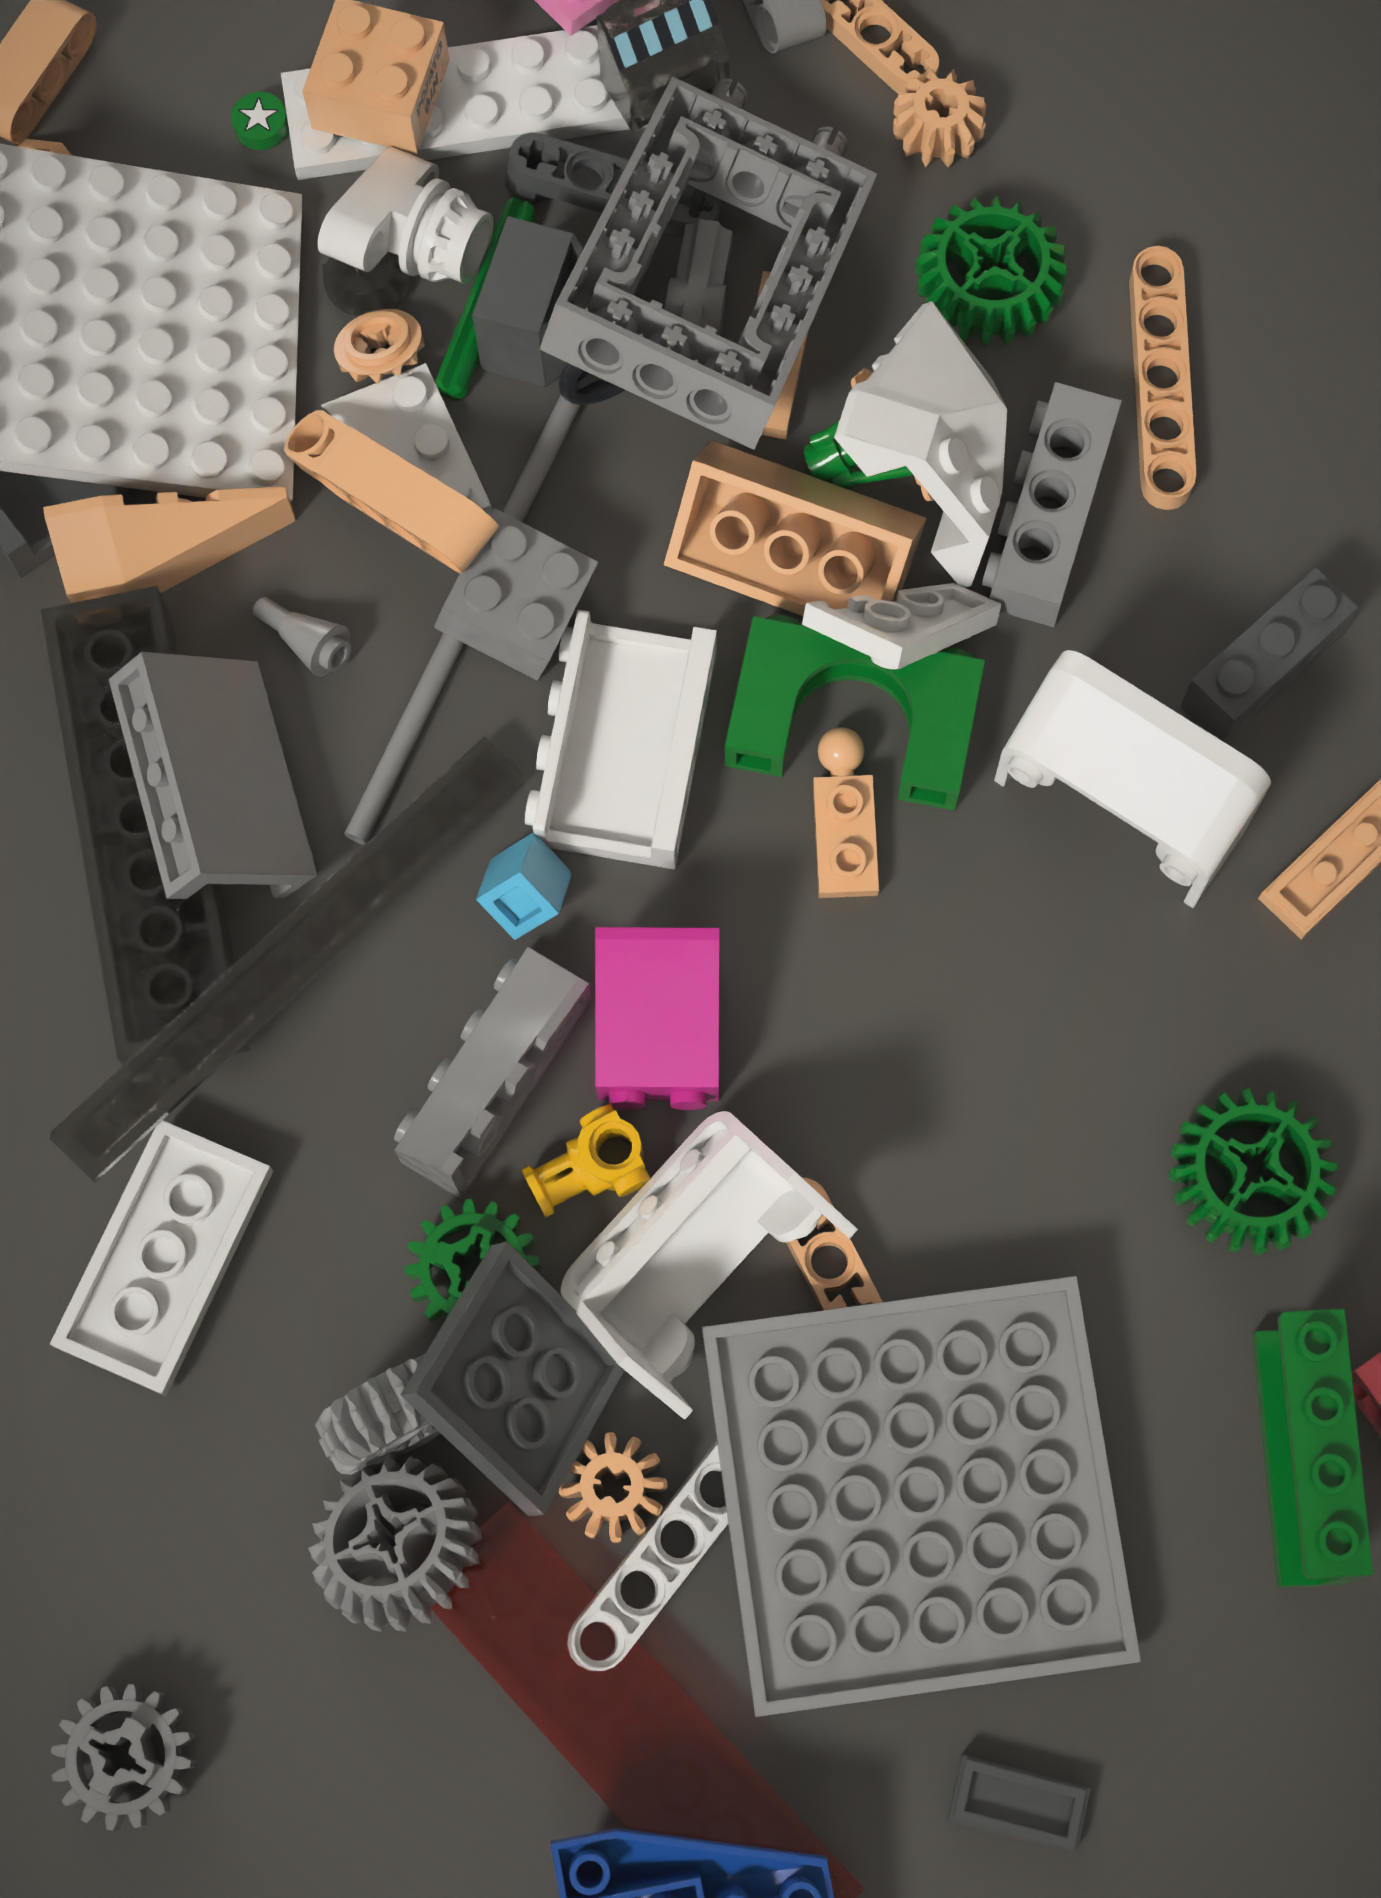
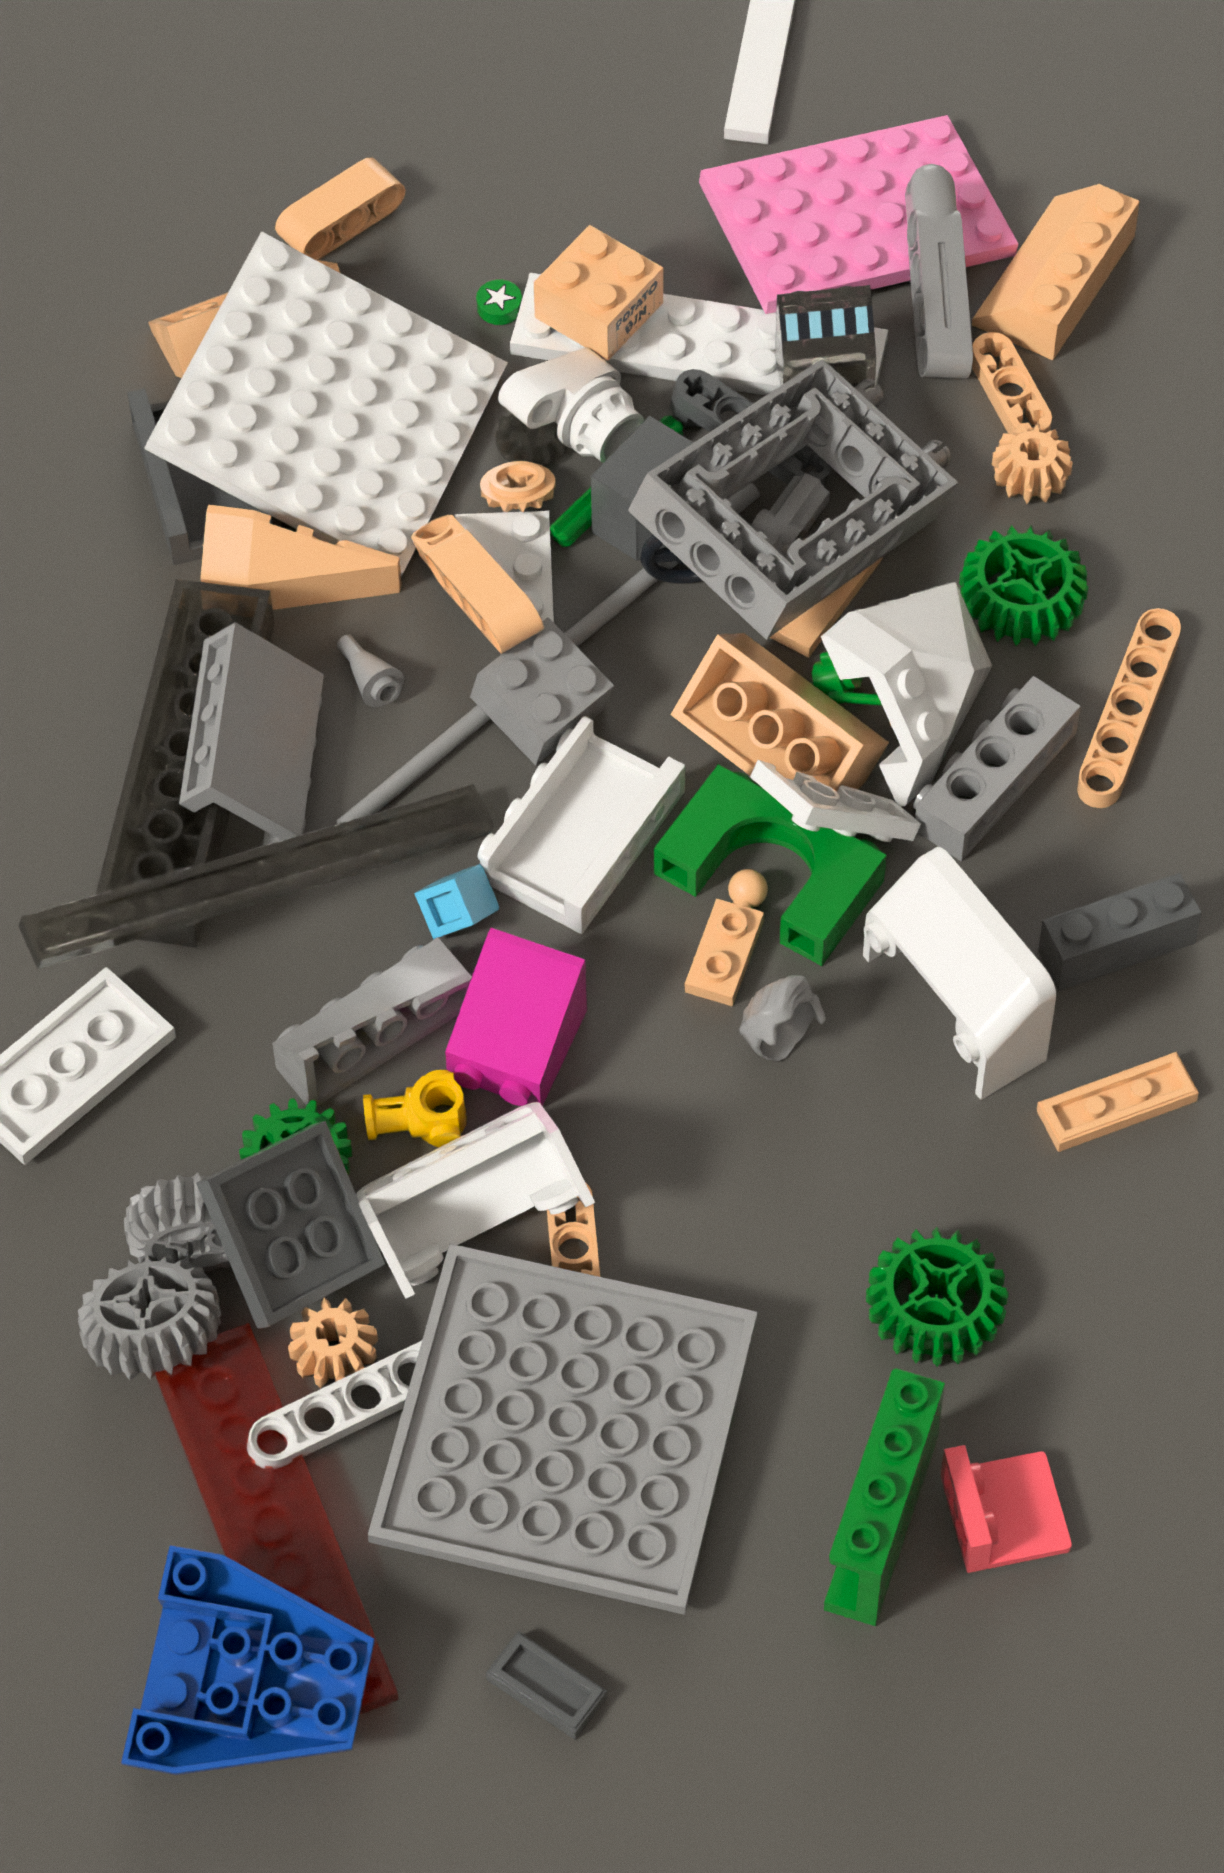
camera: 20 degrees right, 15 degrees down
(943, 899) = (780, 1016): none -> light grey hair

